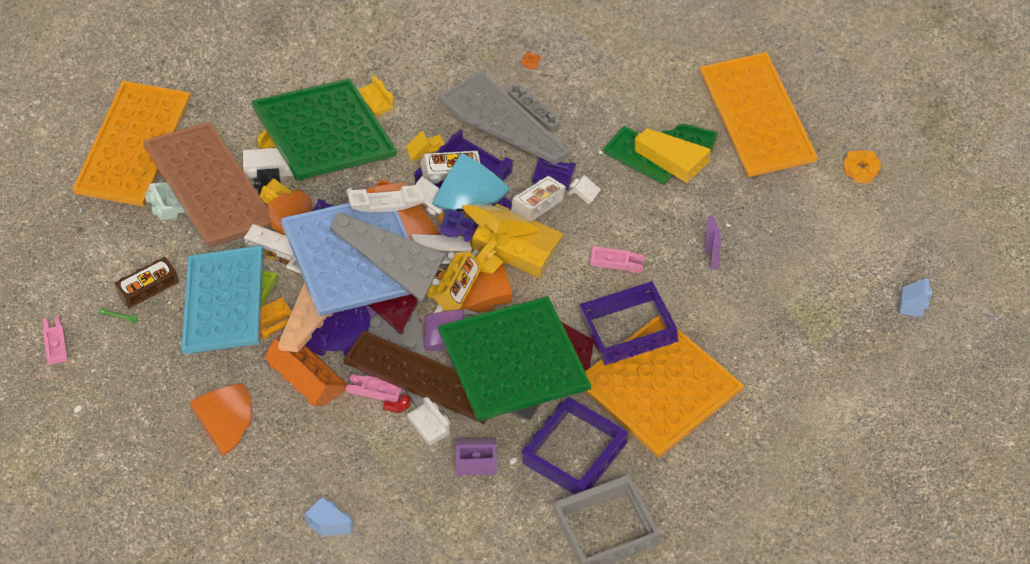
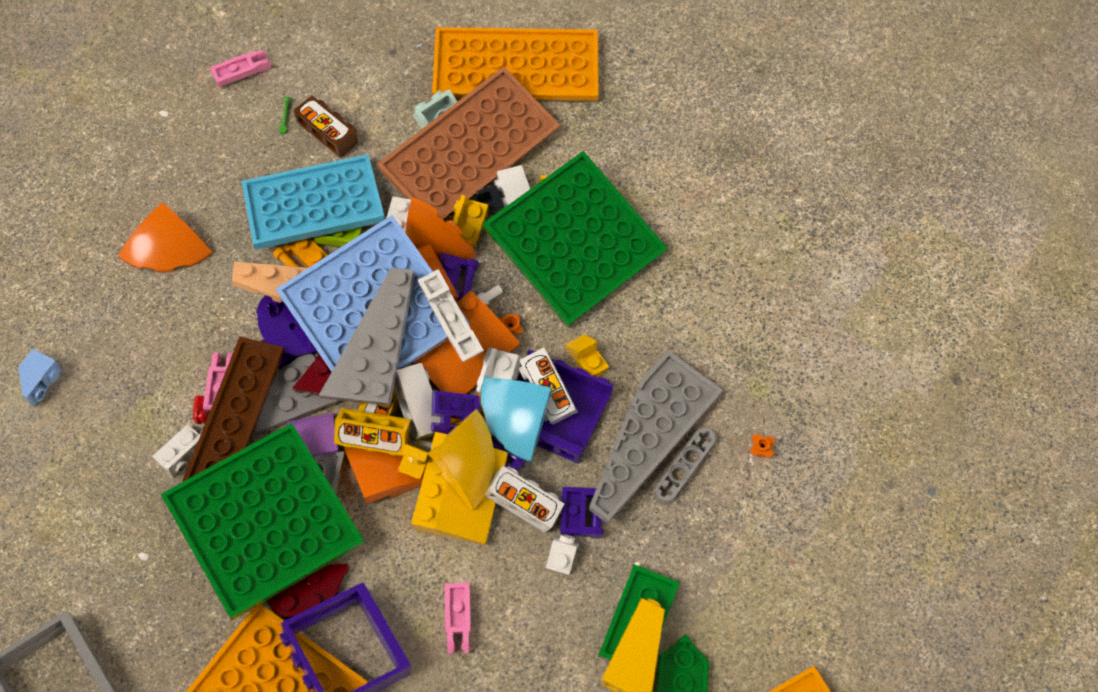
camera: 75 degrees right, 10 degrees up
(306, 373) = (224, 315): orange slope -> none
(377, 97) = (648, 283): yellow bracket -> none
(476, 456) = (134, 509): medium lavender slope -> none
(560, 477) = (183, 671): dark purple window -> none

